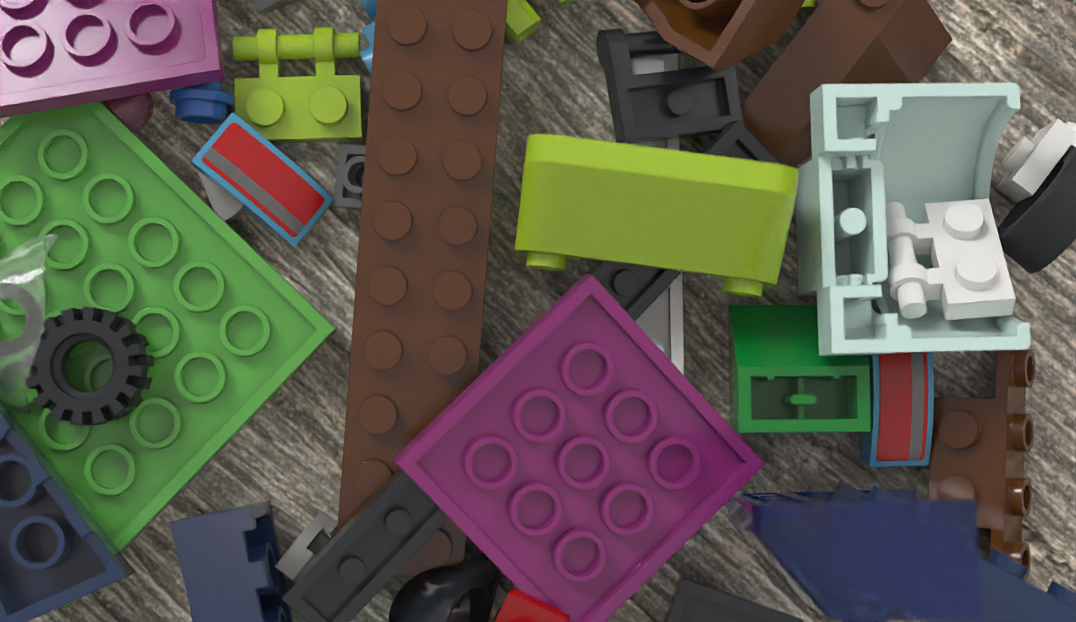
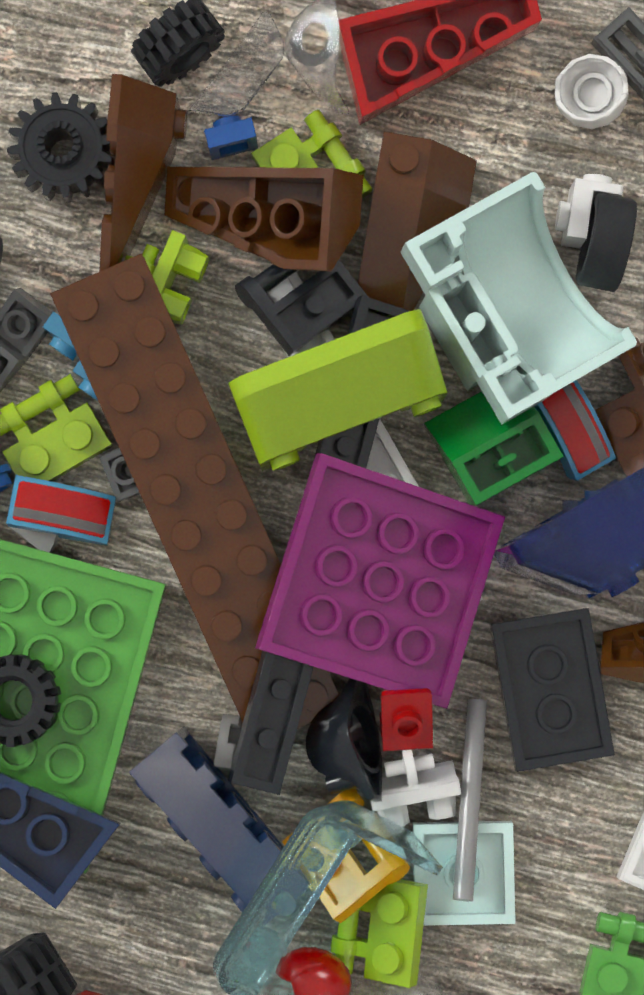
camera: 30 degrees left, 0 degrees up
(965, 257) = (565, 306): white plate -> none

